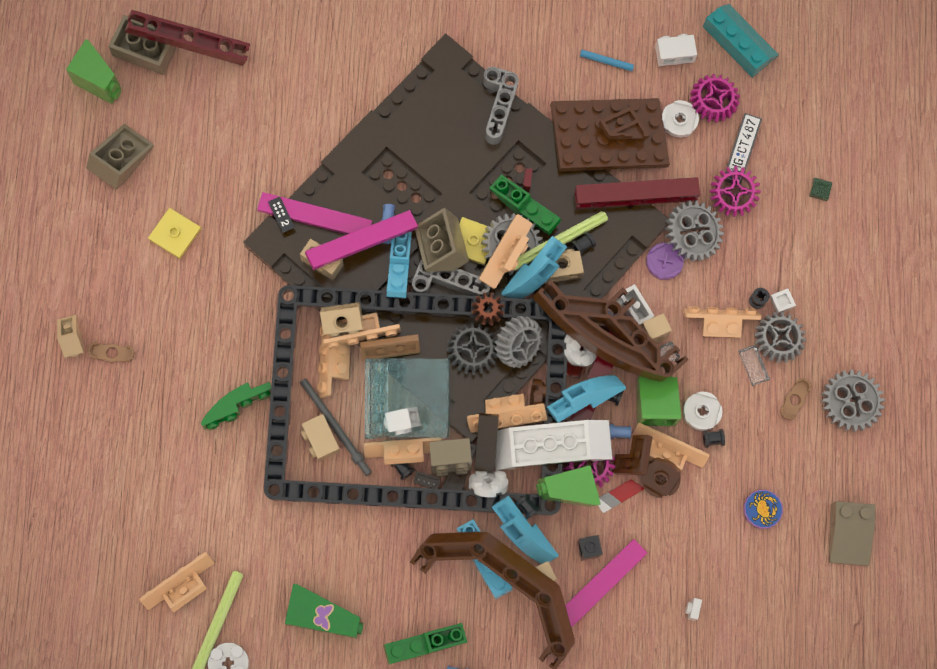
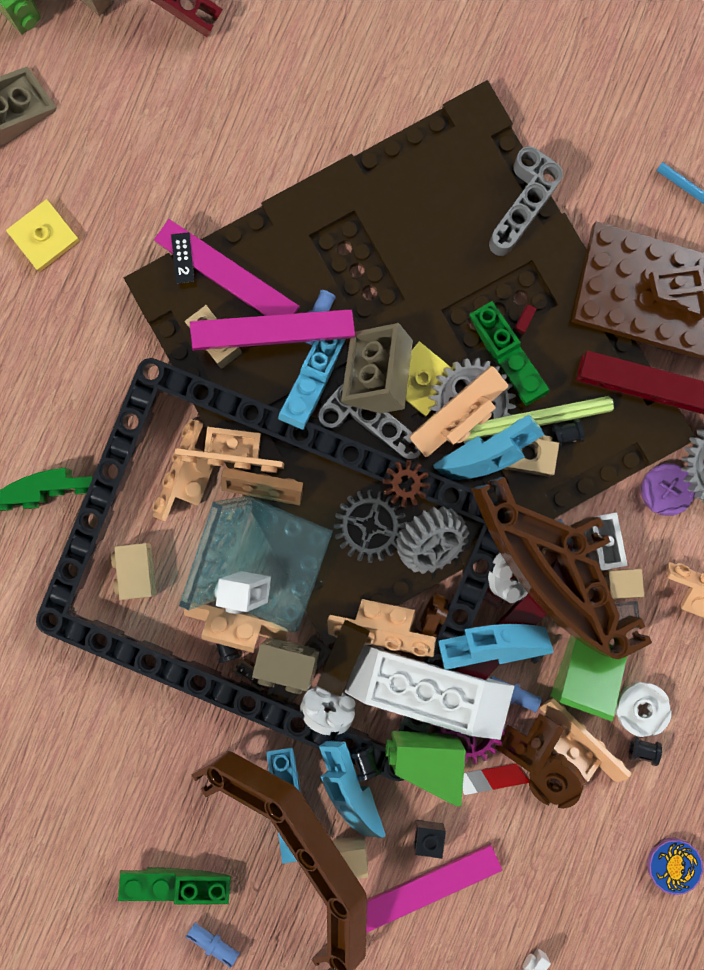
camera: 30 degrees right, 10 degrees up
(318, 614) = (56, 801): green slope -> none
(351, 312) = (222, 424): tan brick -> none
(357, 457) = (174, 612): dark grey bar -> none

